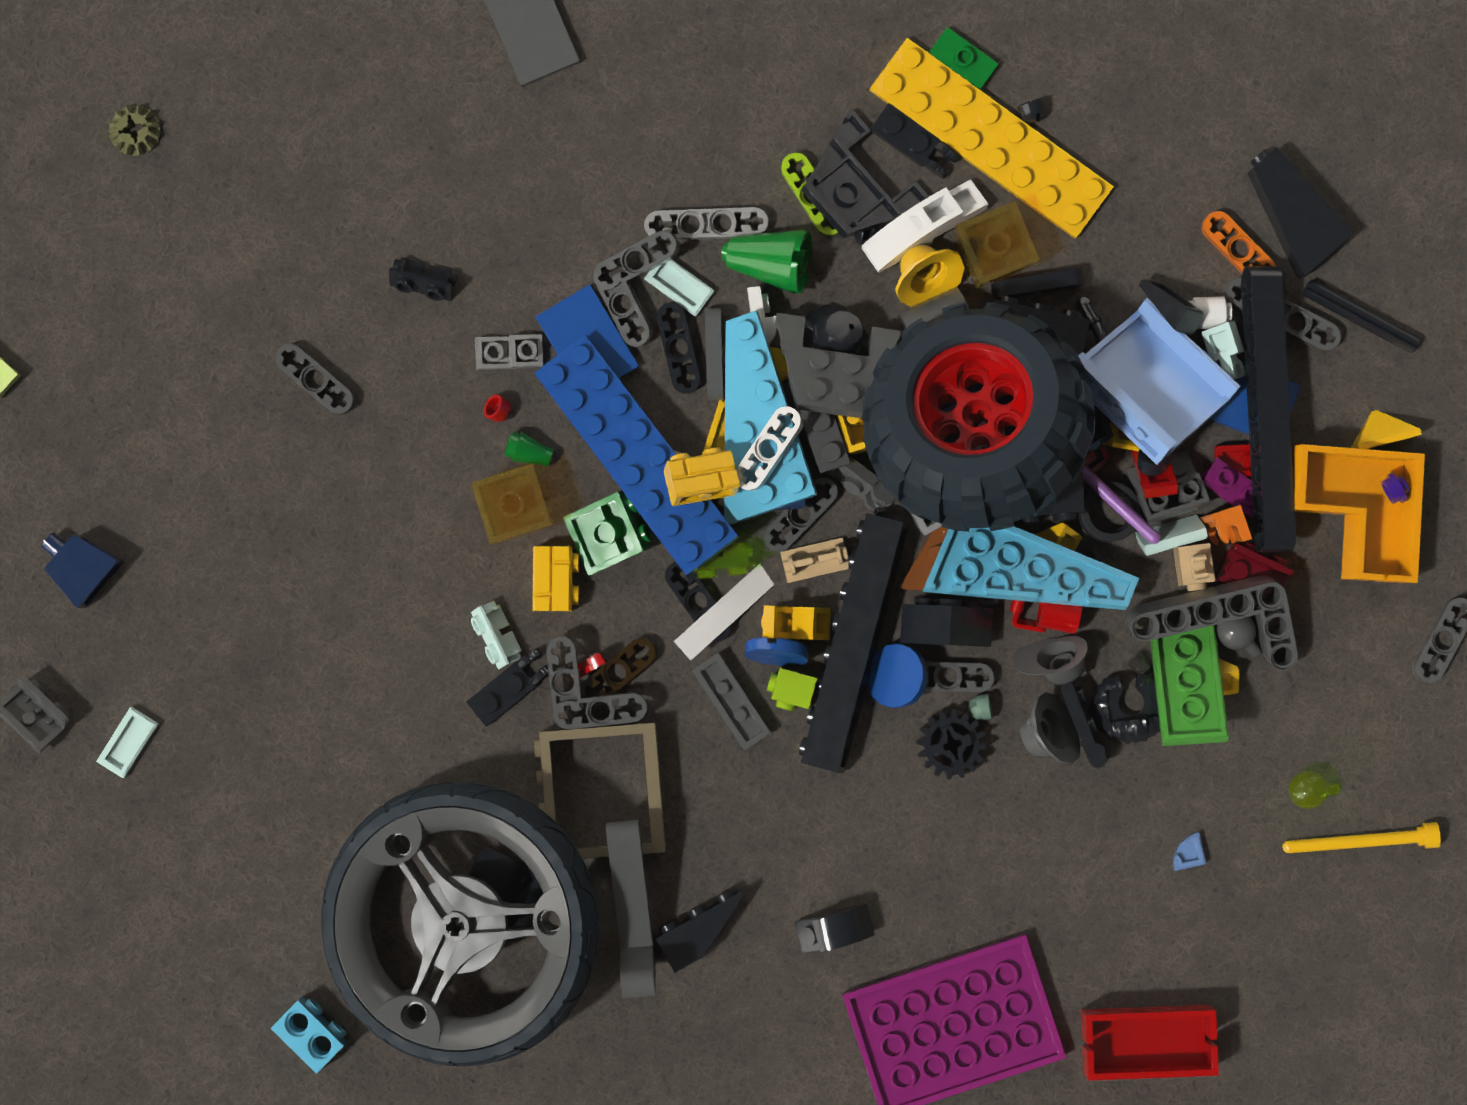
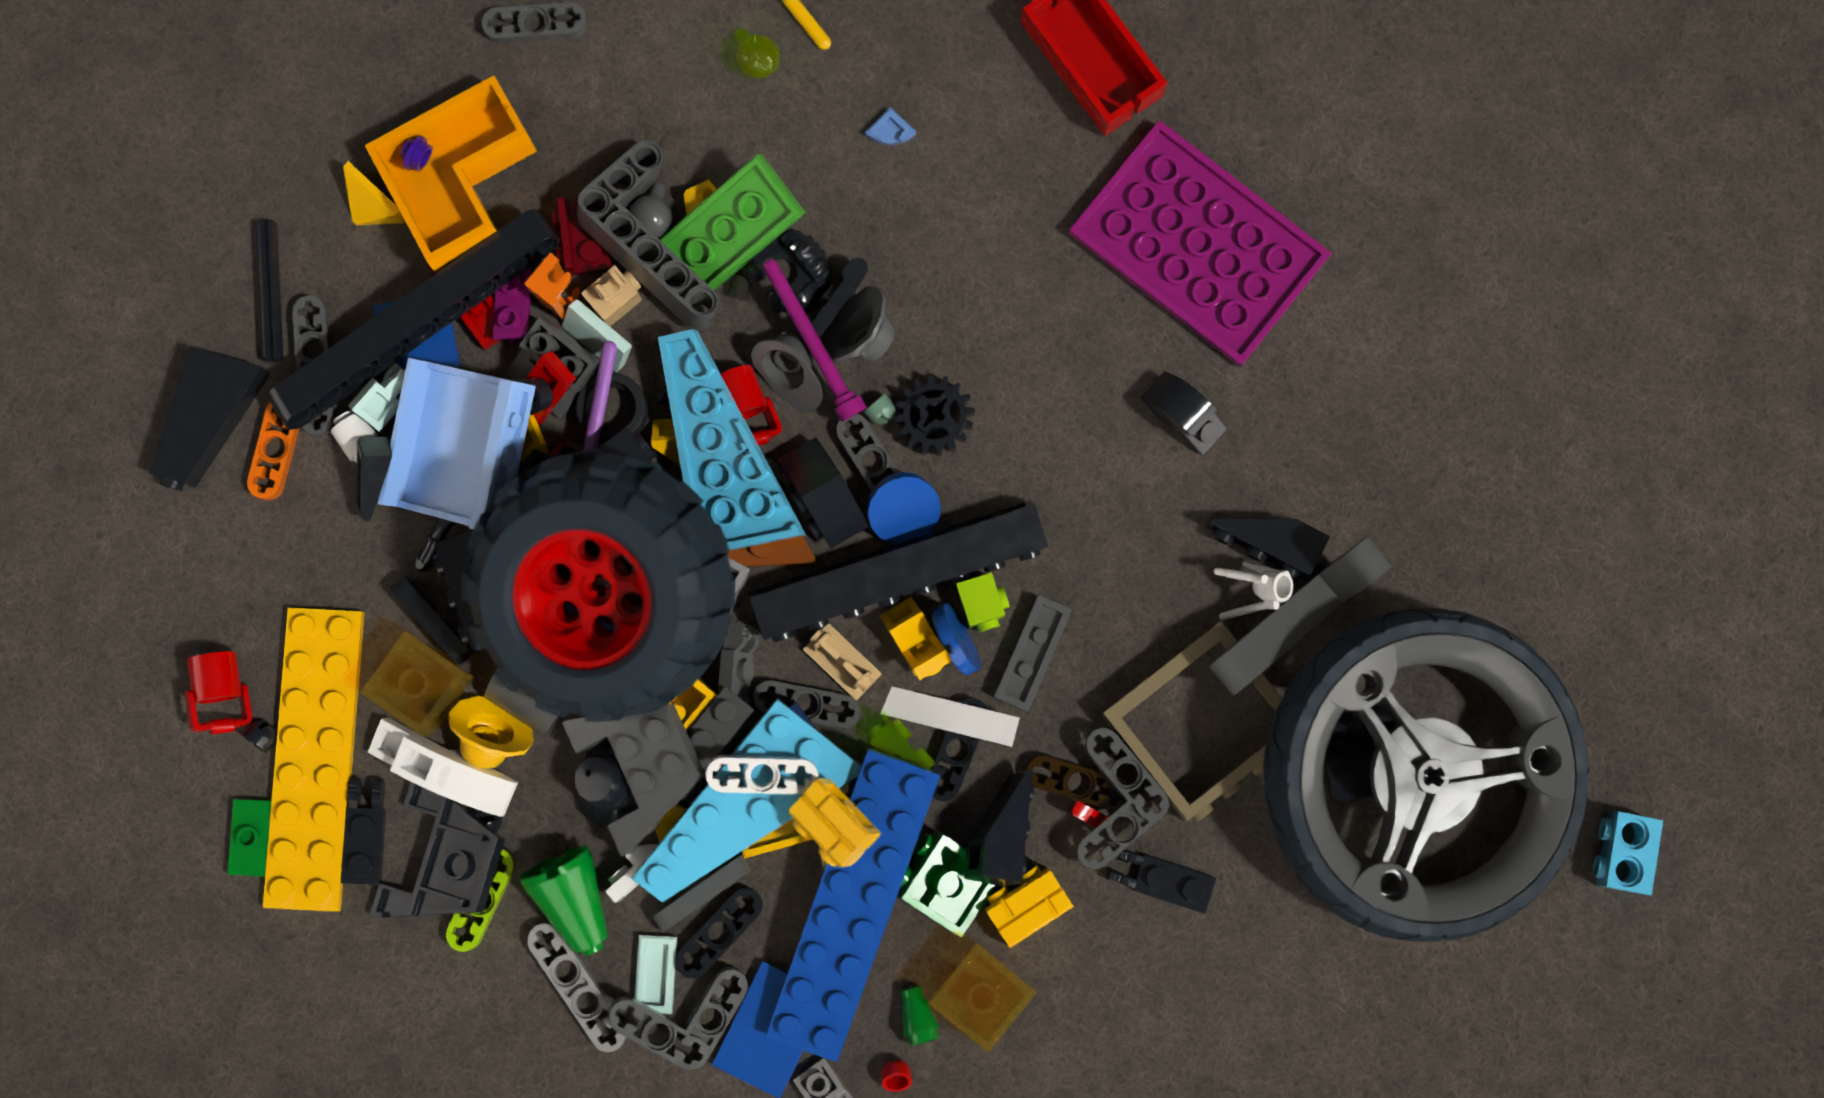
camera: 125 degrees left, 5 degrees down
(498, 646) = (1129, 917): light aqua hinge -> none
(613, 588) = (999, 841): none -> black slope
(666, 904) = (1270, 585): none -> white plant
(1001, 685) = (846, 401): none -> magenta piece
(1093, 103) = (216, 679): none -> red piece

